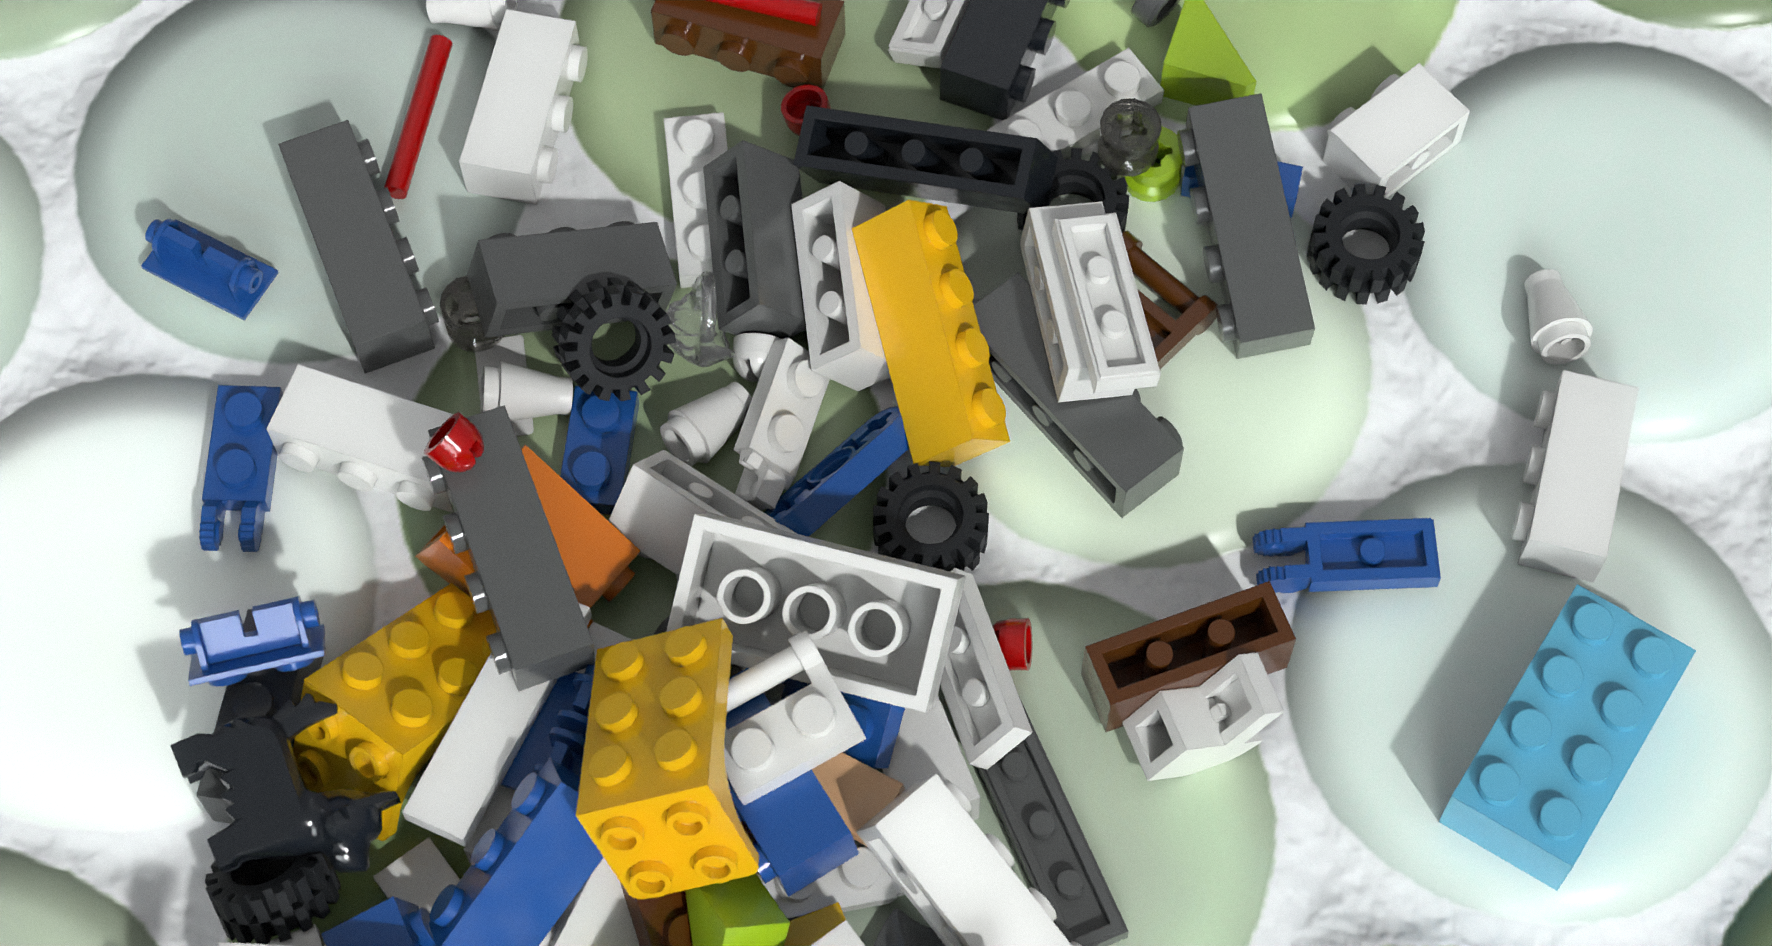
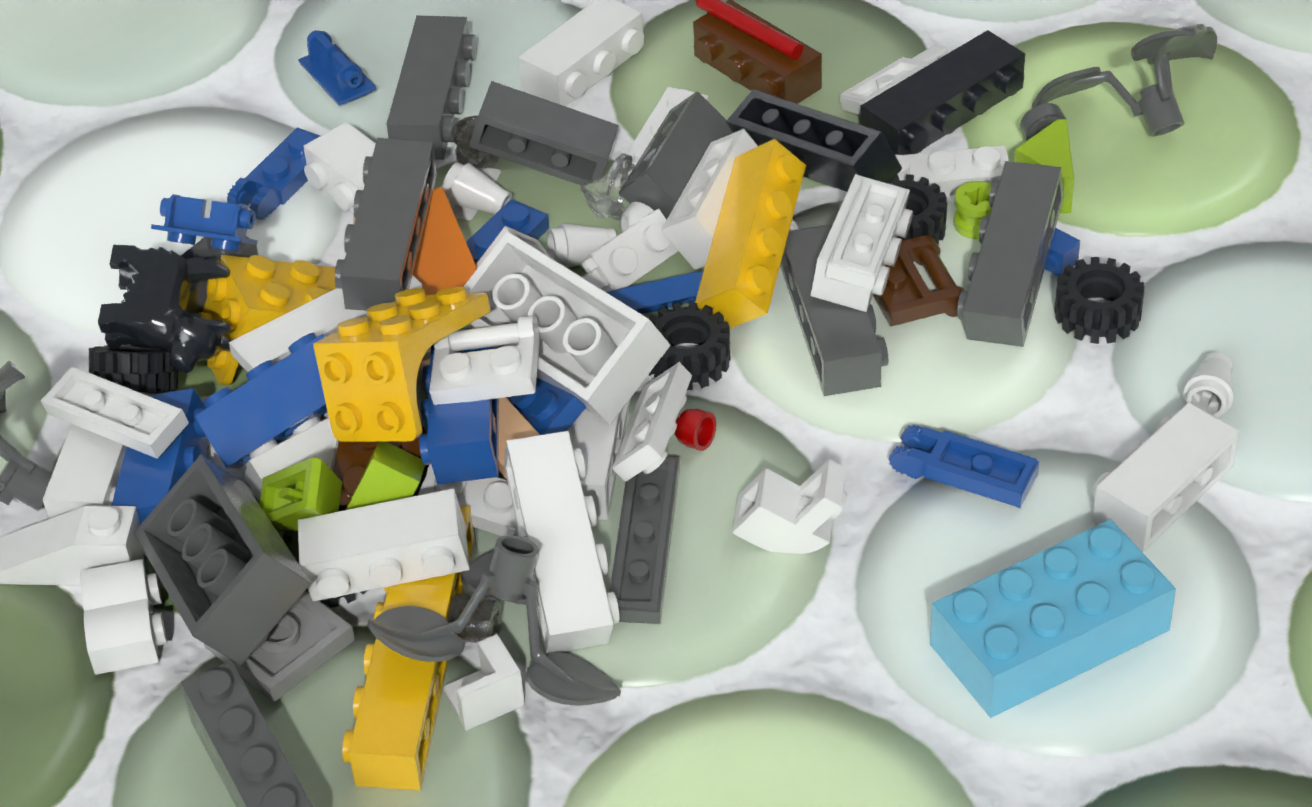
camera: 30 degrees right, 20 degrees down
(418, 116) = (517, 42): red bar -> none
(455, 444) = (385, 142): red hinge -> none
(633, 367) = (516, 172): black tyre -> none
(1133, 152) = (960, 175): clear smoke wheel -> none
(1184, 651) = (800, 453): reddish brown brick -> none
(1395, 132) = (1164, 245): white brick -> none

